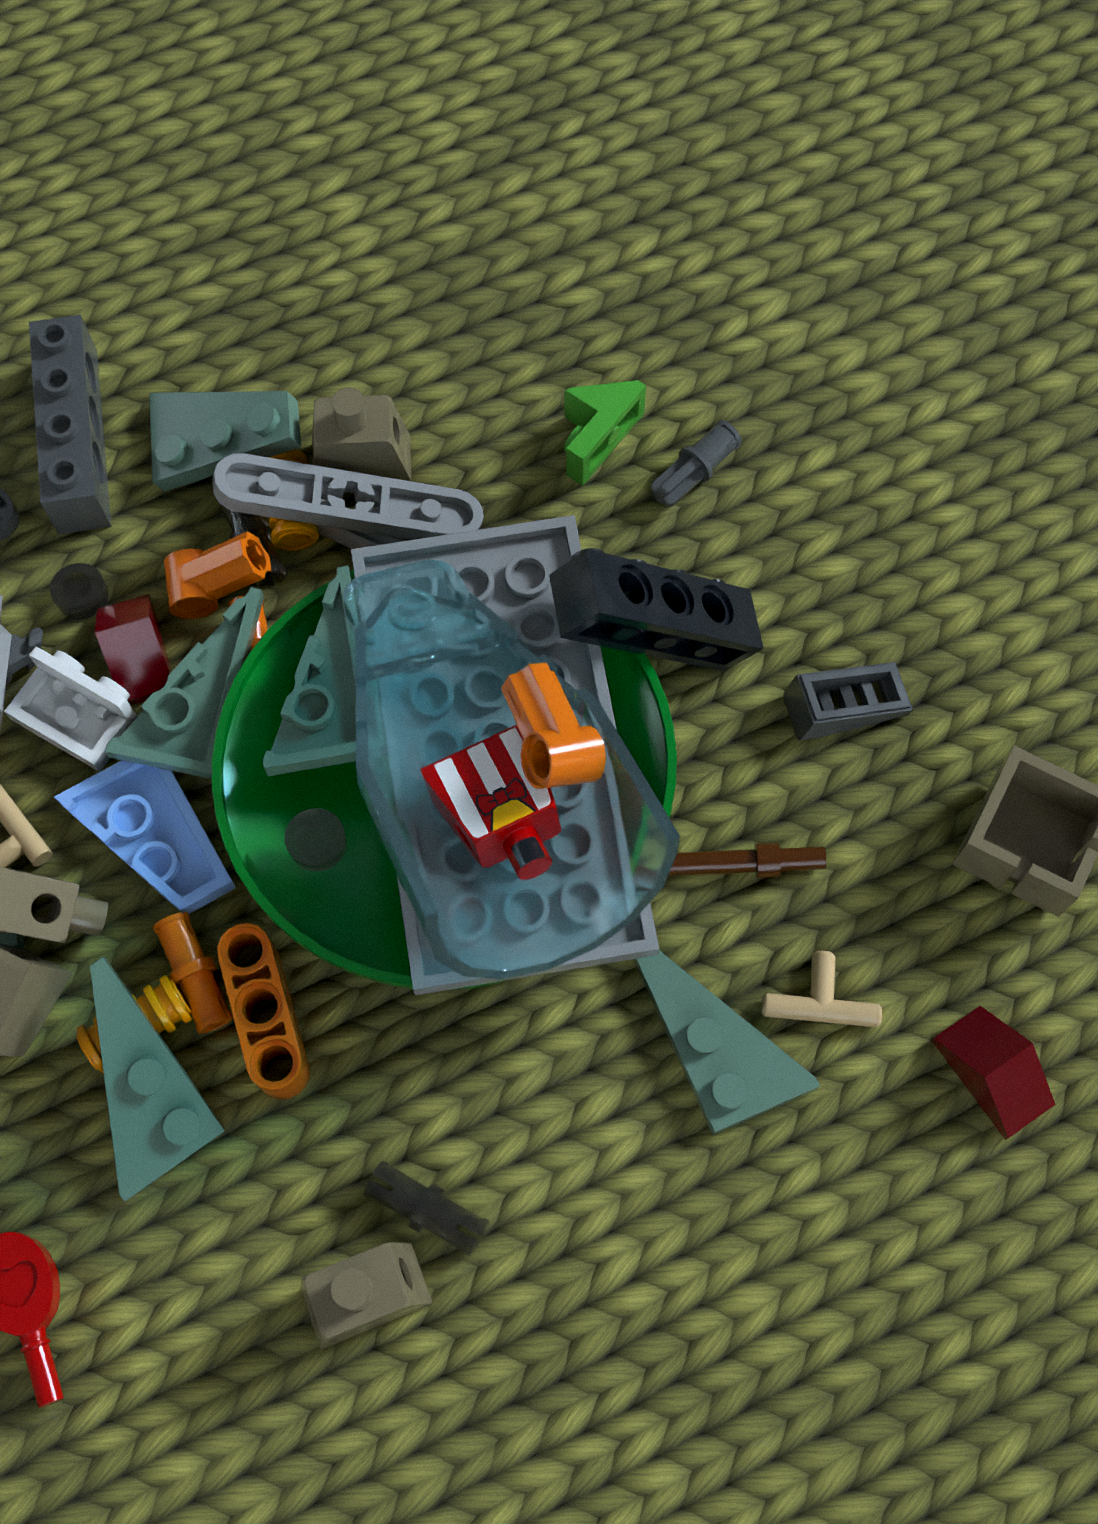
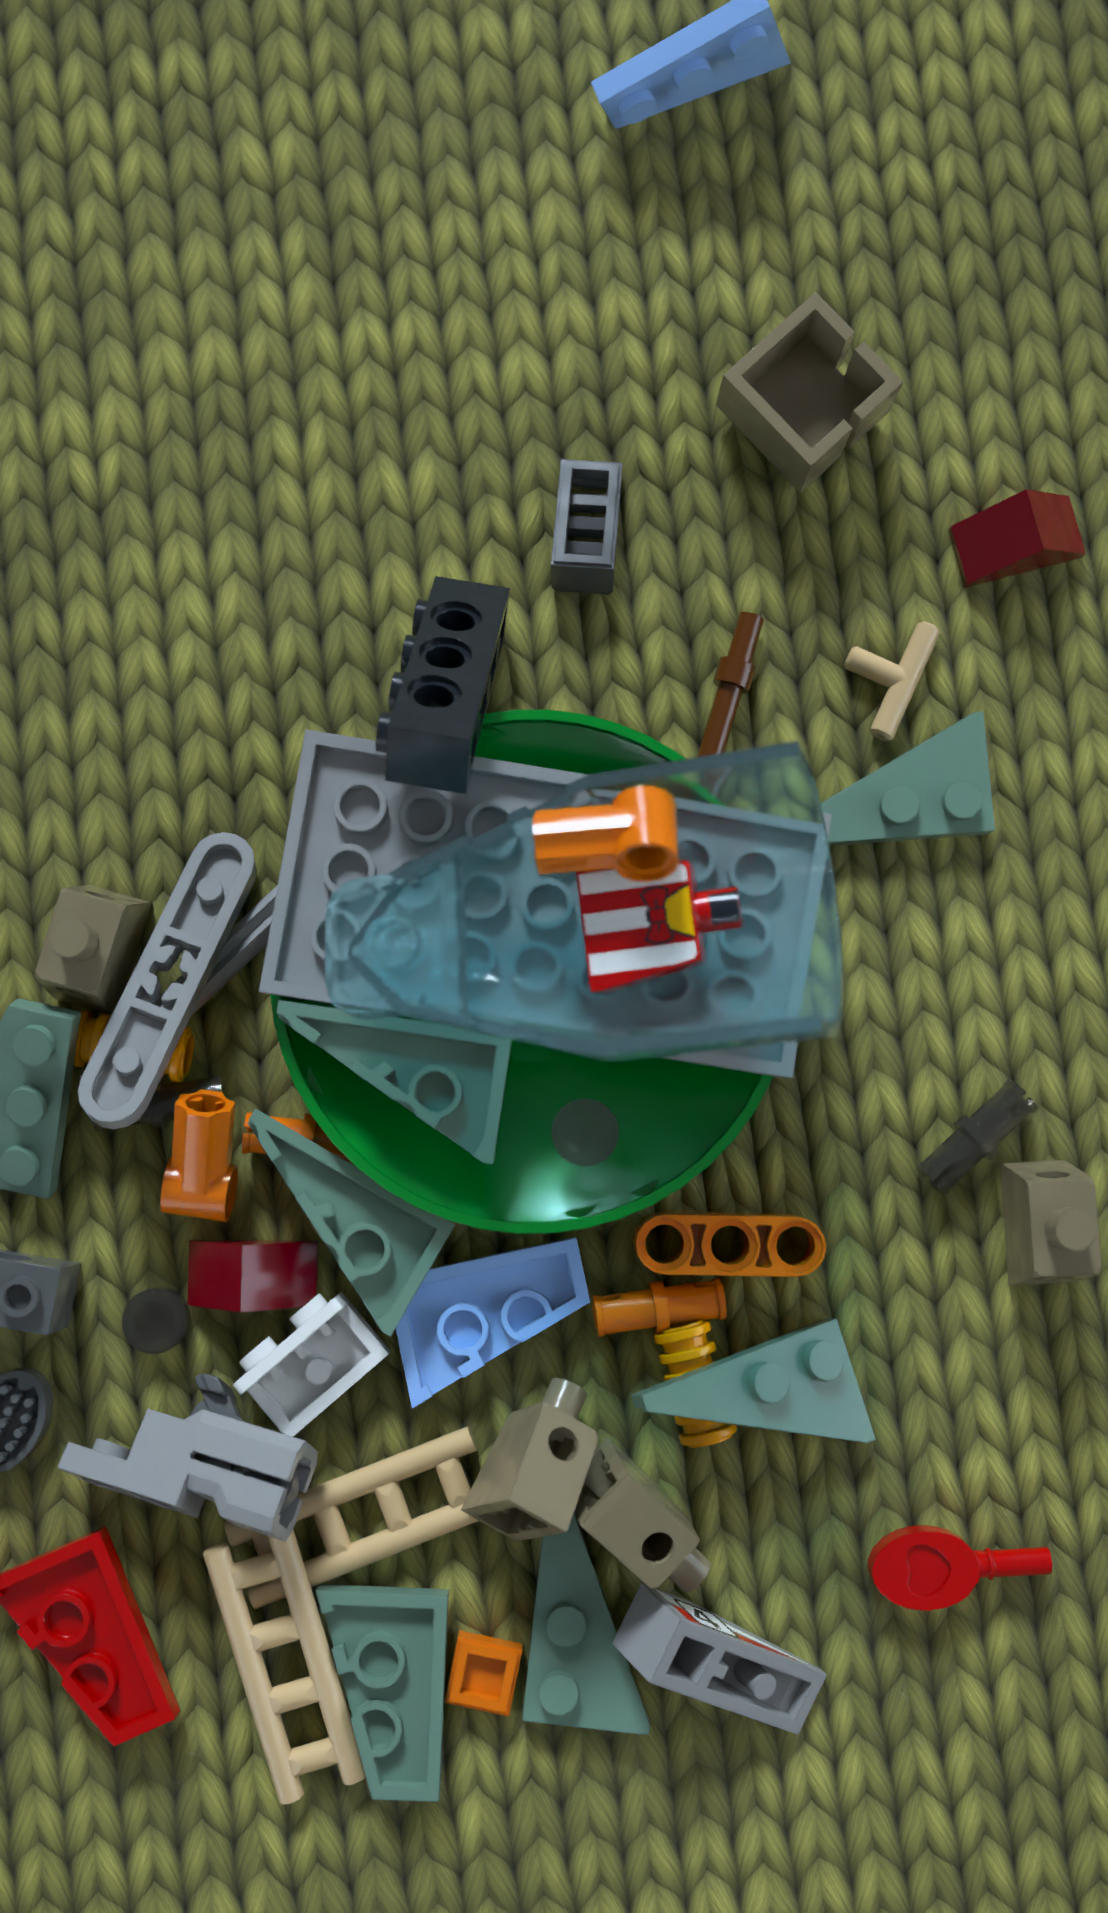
camera: 75 degrees left, 15 degrees up
(602, 420) = (155, 655): bright green slope -> none
(695, 463) = (250, 577): dark grey axle -> none

